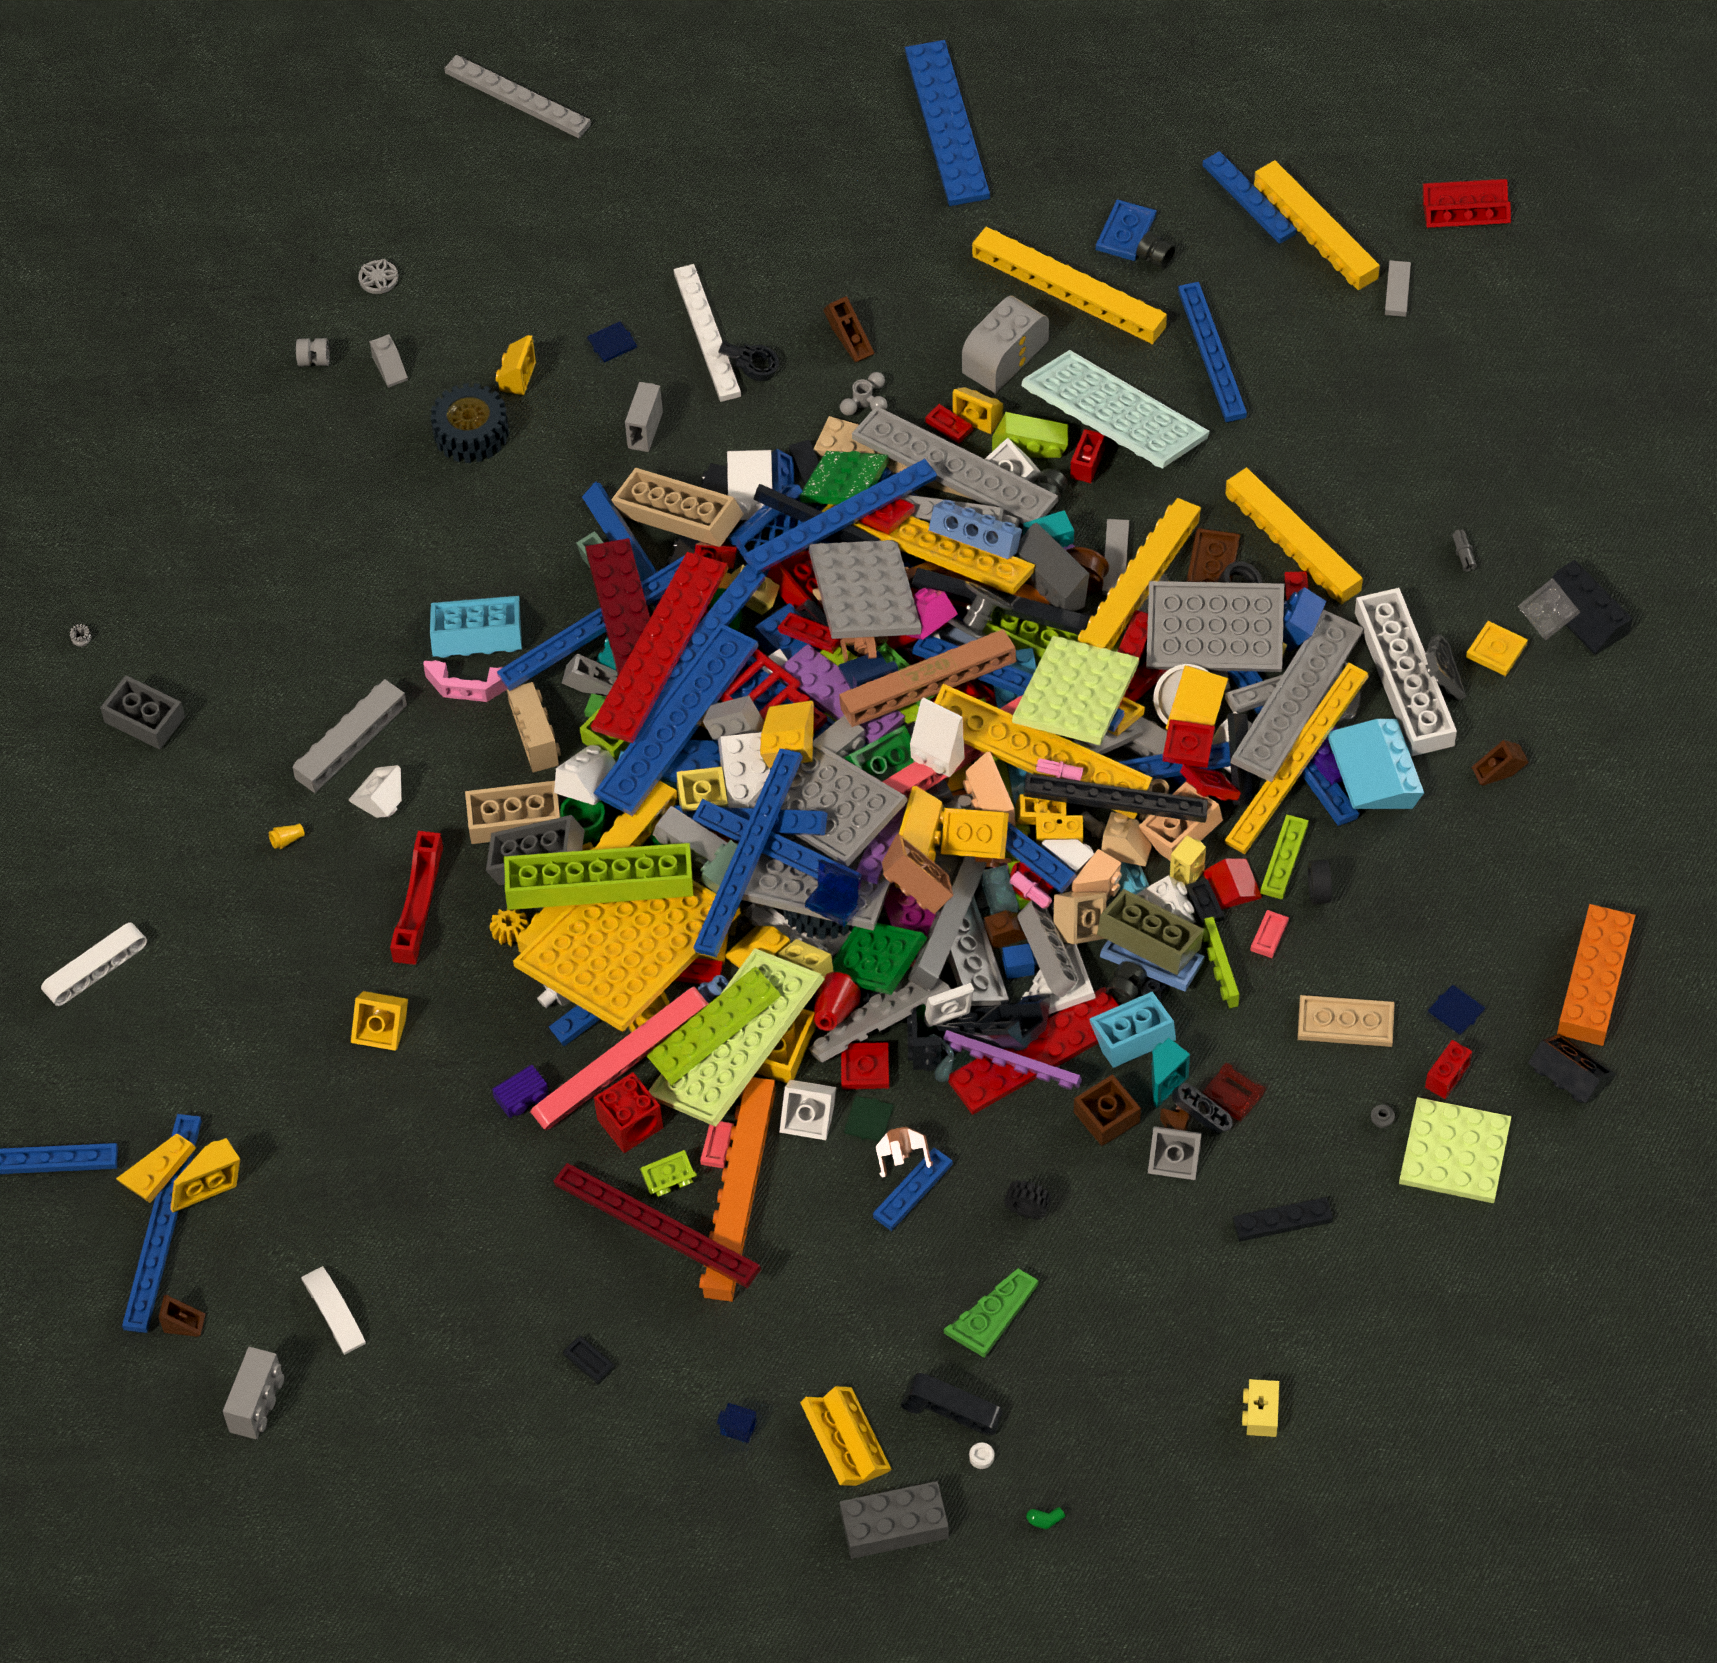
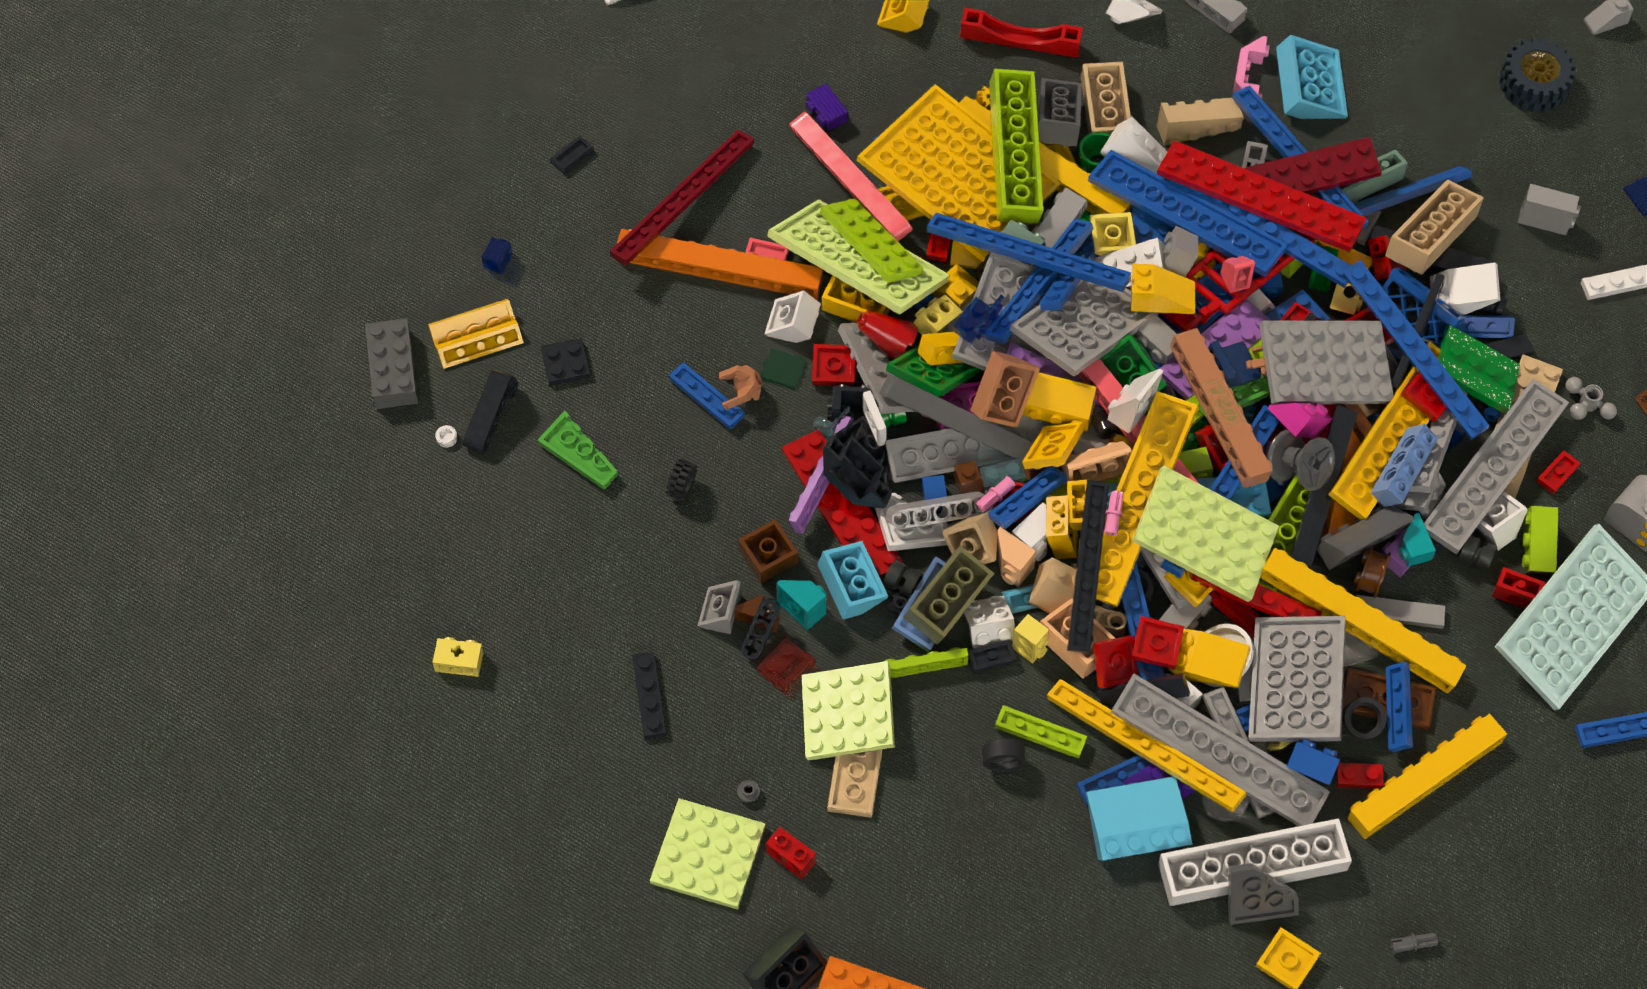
camera: 90 degrees right, 5 degrees up
(517, 366) = (1605, 114): yellow slope -> none
(628, 1112) = (794, 179): red brick -> none
(668, 1172) = (737, 212): lime bracket -> none
(713, 988) = (921, 244): medium blue bush -> none
(745, 356) = (1631, 293): black pin -> none
(759, 664) = (1237, 273): none -> coral slope
(853, 947) = (938, 348): none -> yellow brick
(875, 1340) = (565, 361): none -> black plate
(977, 409) = (1577, 494): yellow slope -> none
(1045, 1520) = (378, 479): green arm -> none
(1226, 552) = (1399, 707): none -> blue plate
(1232, 882) = (1015, 685): red slope -> none
(1269, 934) = (956, 712): coral tile -> none
(1285, 1025) = (848, 711): none -> yellowish green plate
(1456, 1009) = (863, 873): clear blue piece -> none
(1500, 763) = (1144, 945): reddish brown slope -> none

